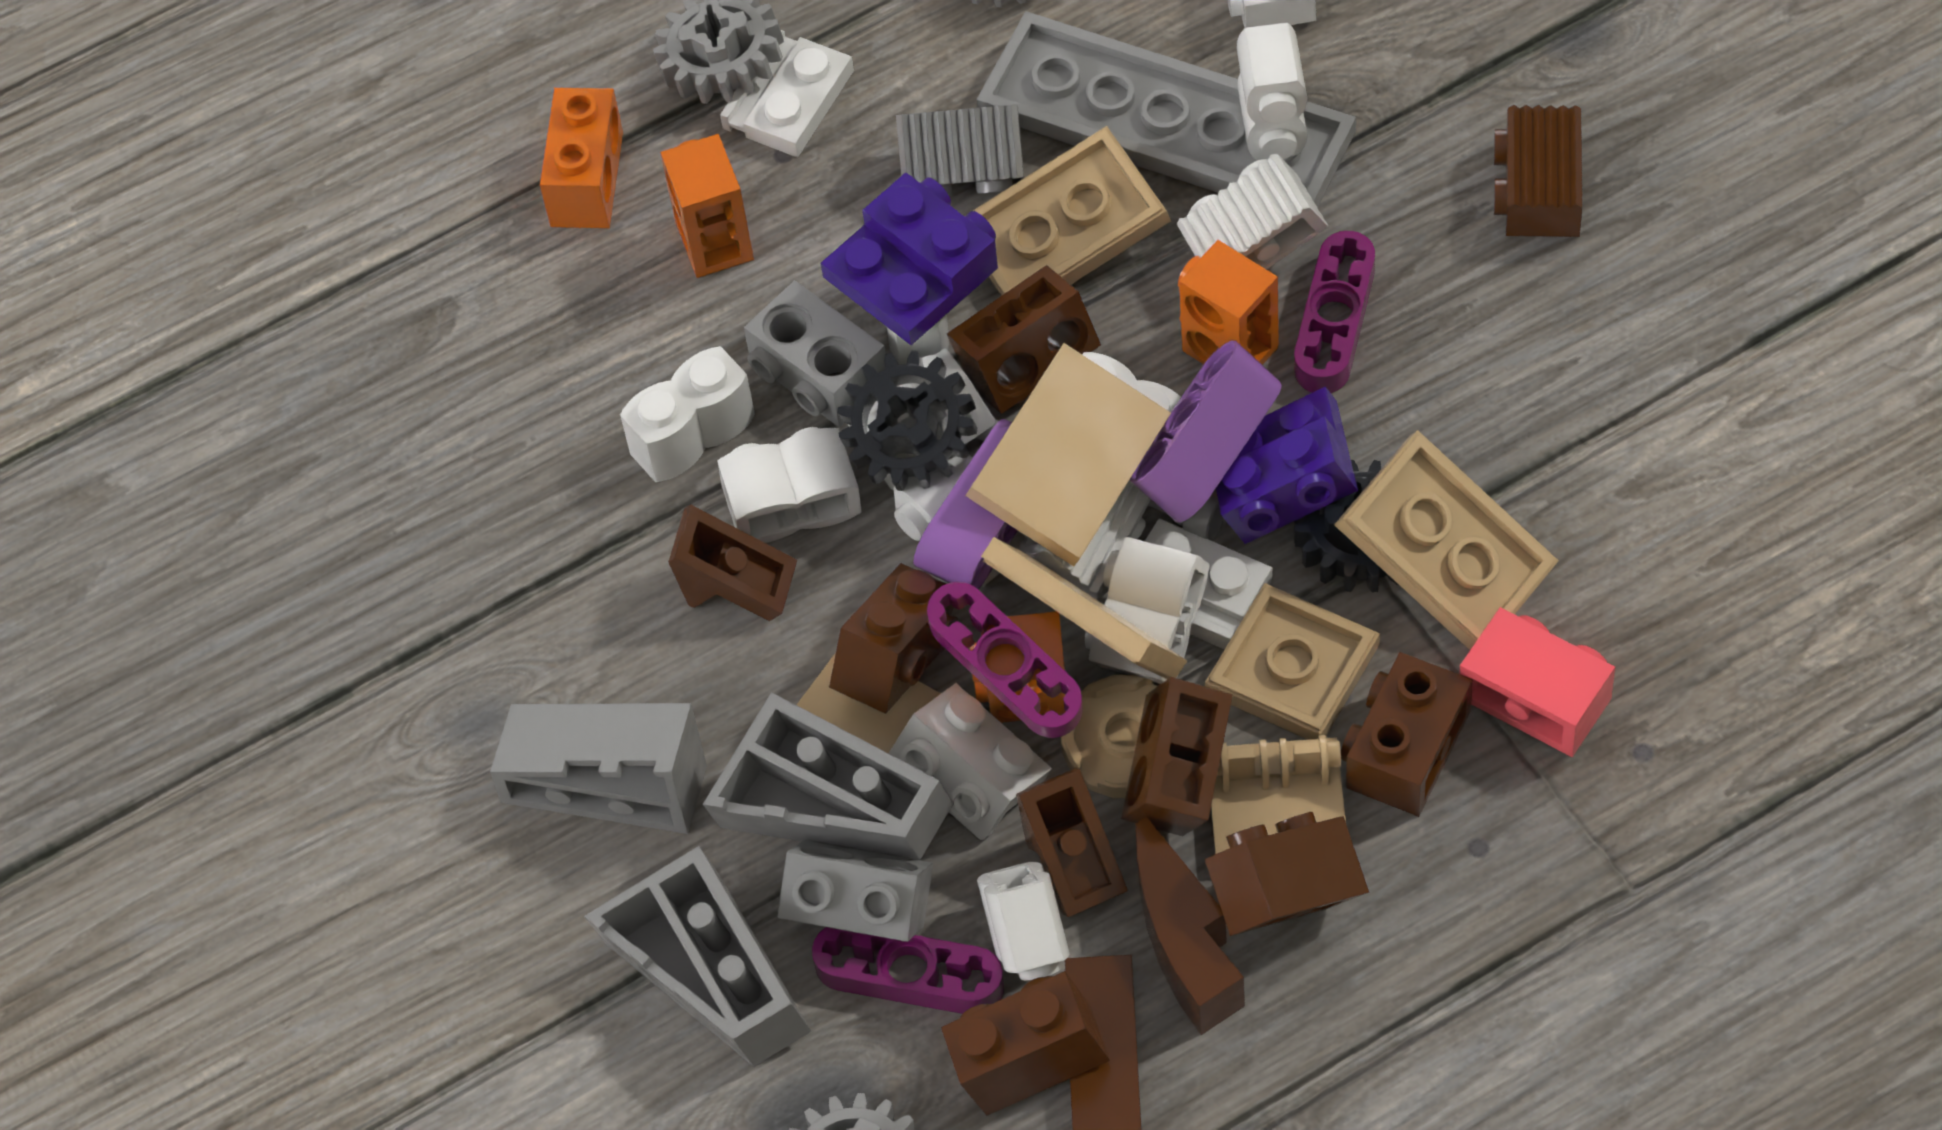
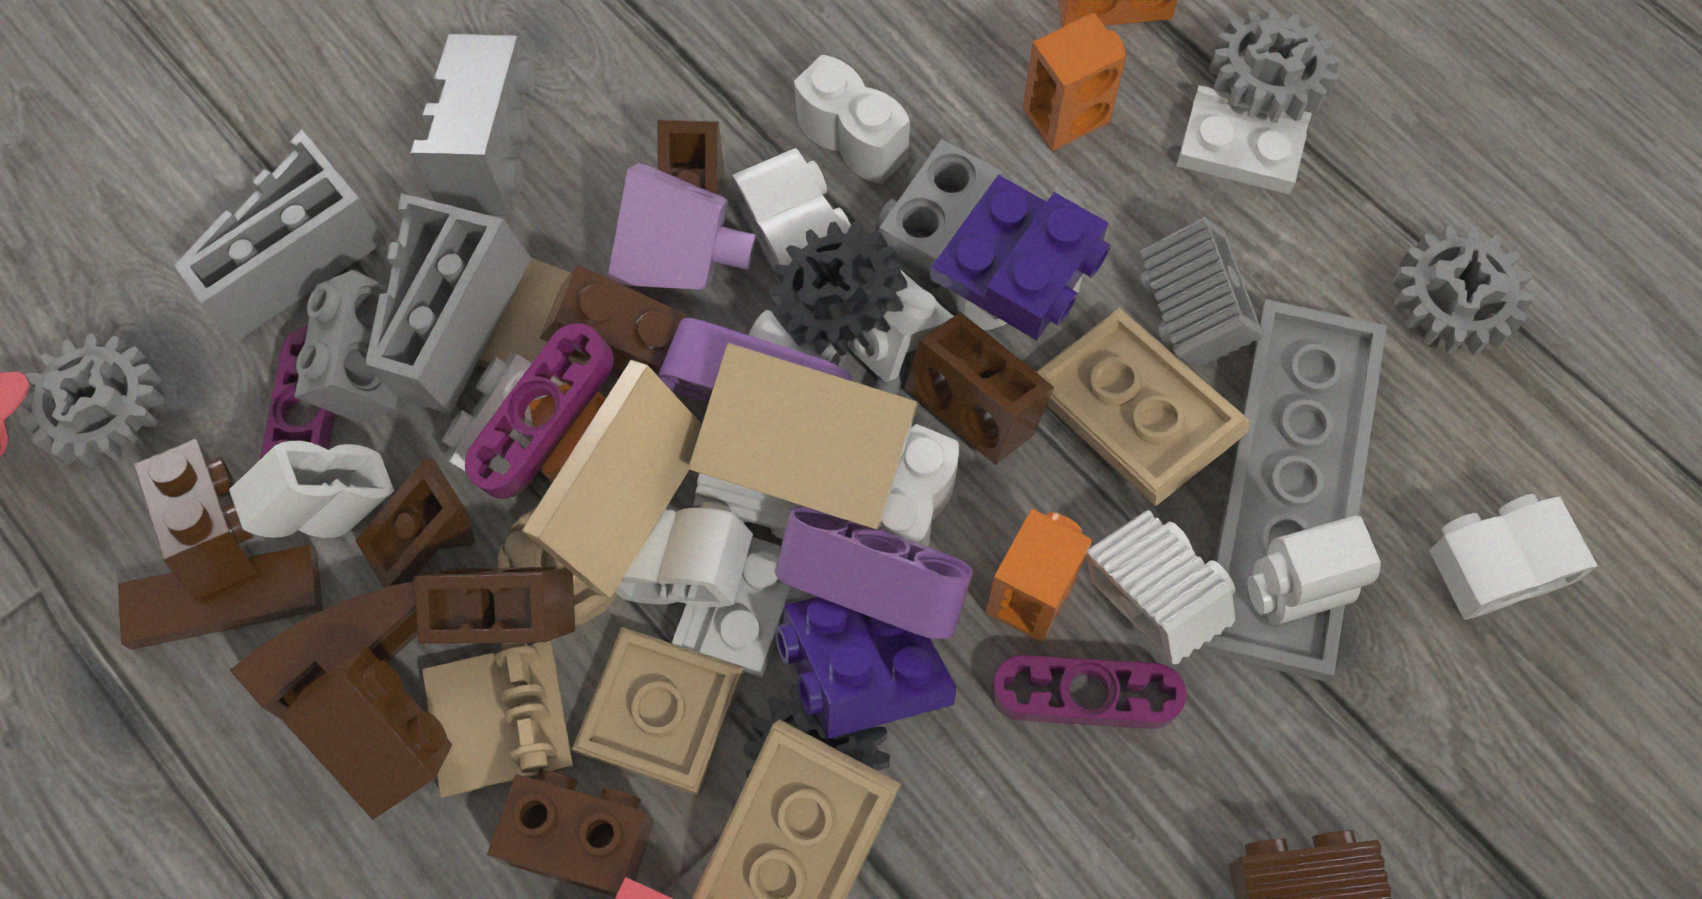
camera: 75 degrees right, 10 degrees up
(793, 583) = (673, 233): none -> lavender torso

